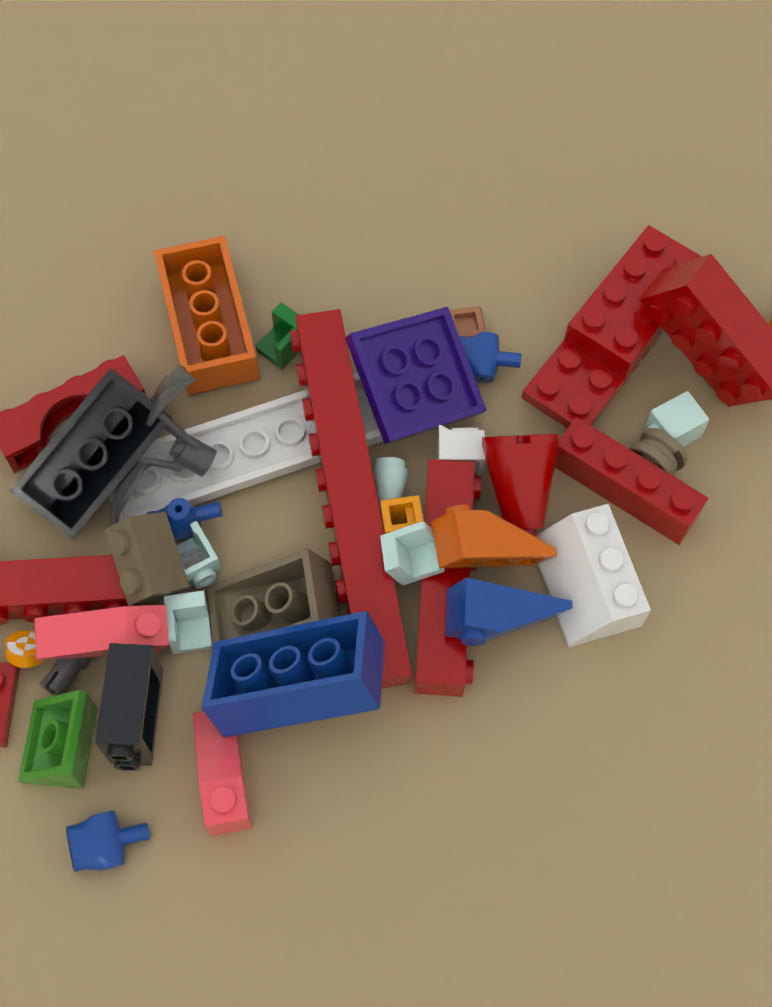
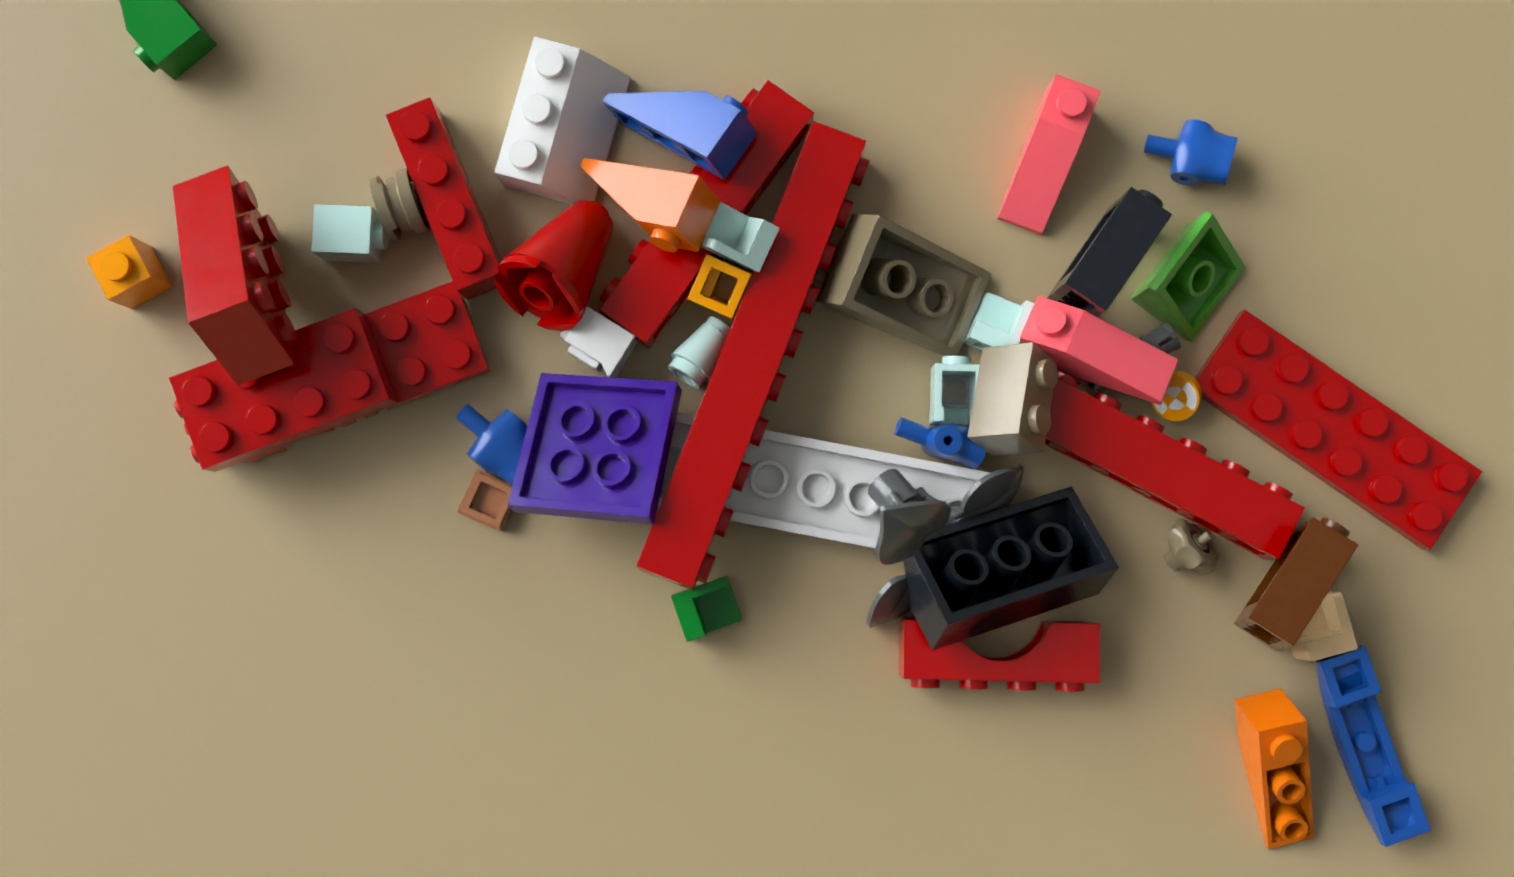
camera: 150 degrees left, 20 degrees up
(207, 314) = (779, 684): orange brick -> none
(295, 675) = (934, 176): blue brick -> none

